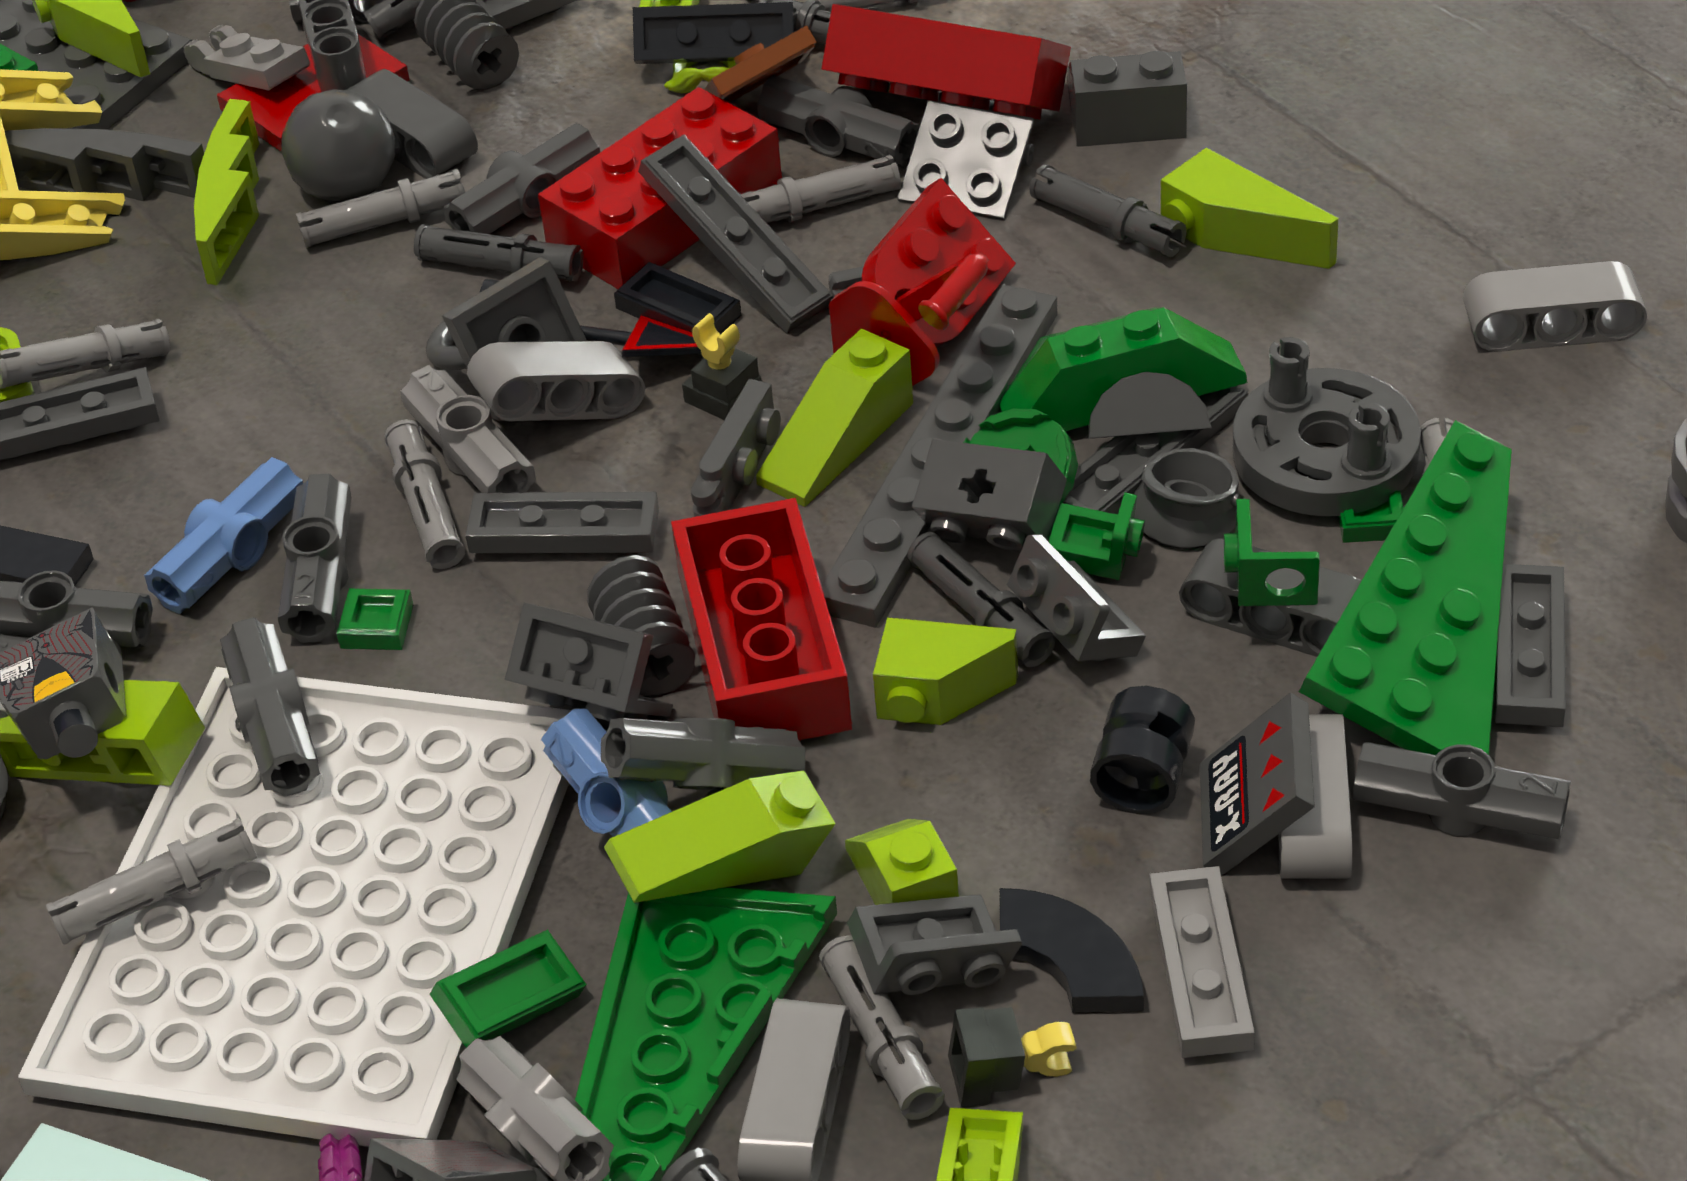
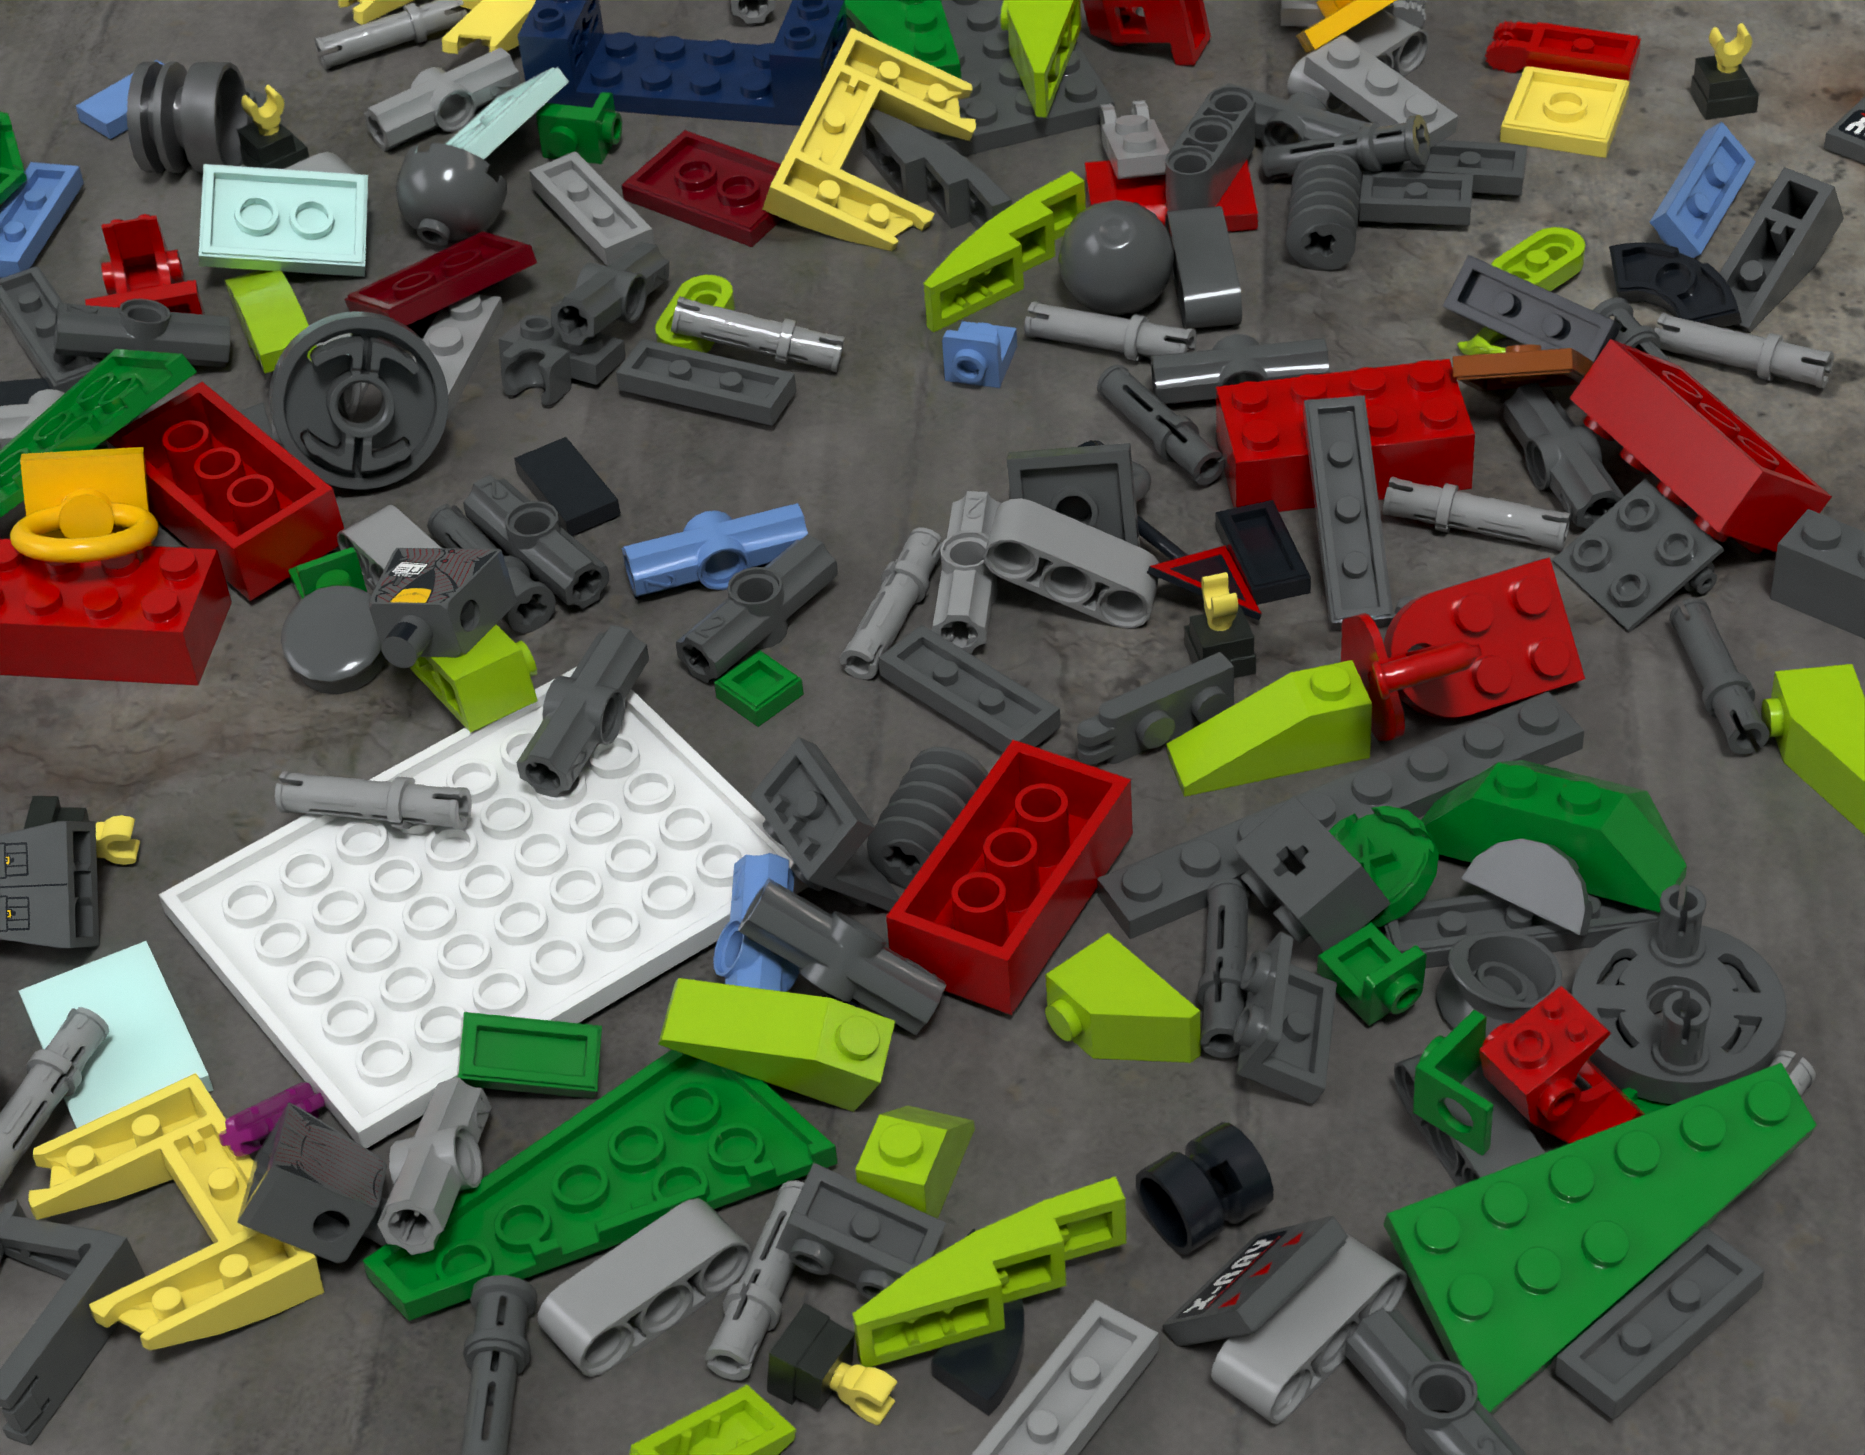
camera: 40 degrees right, 0 degrees up
(284, 277) = (978, 353): none -> medium blue bracket
(1065, 901) = (965, 1285): none -> lime slope
(1313, 513) = (1539, 1061): none -> red tile

